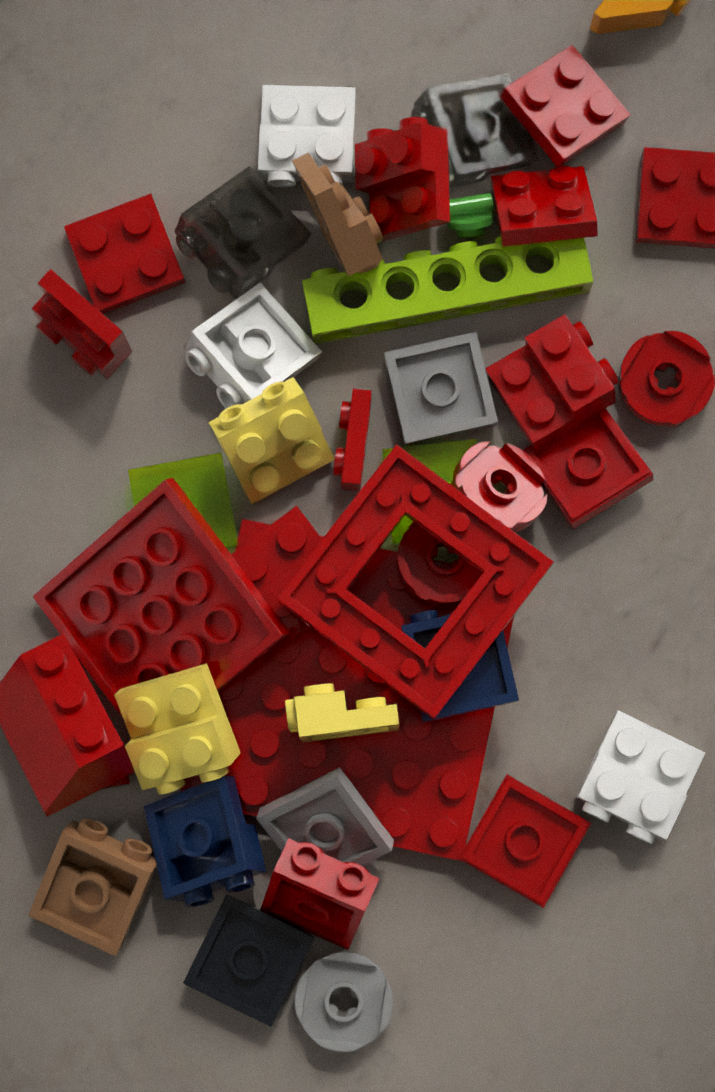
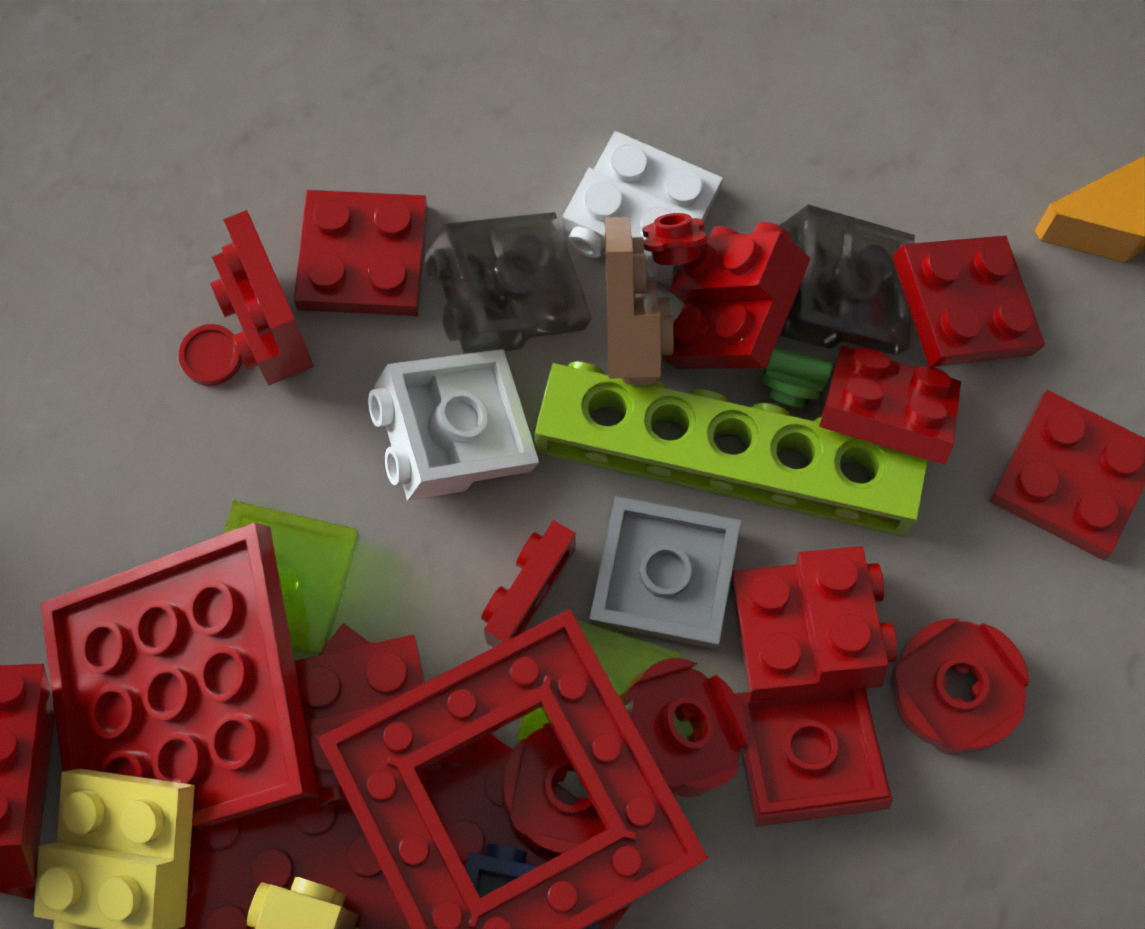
camera: 20 degrees right, 10 degrees down
(54, 375) = (209, 355): none -> red piece
(272, 439) = (422, 539): light yellow plate -> none
(347, 155) = (674, 239): none -> red plate

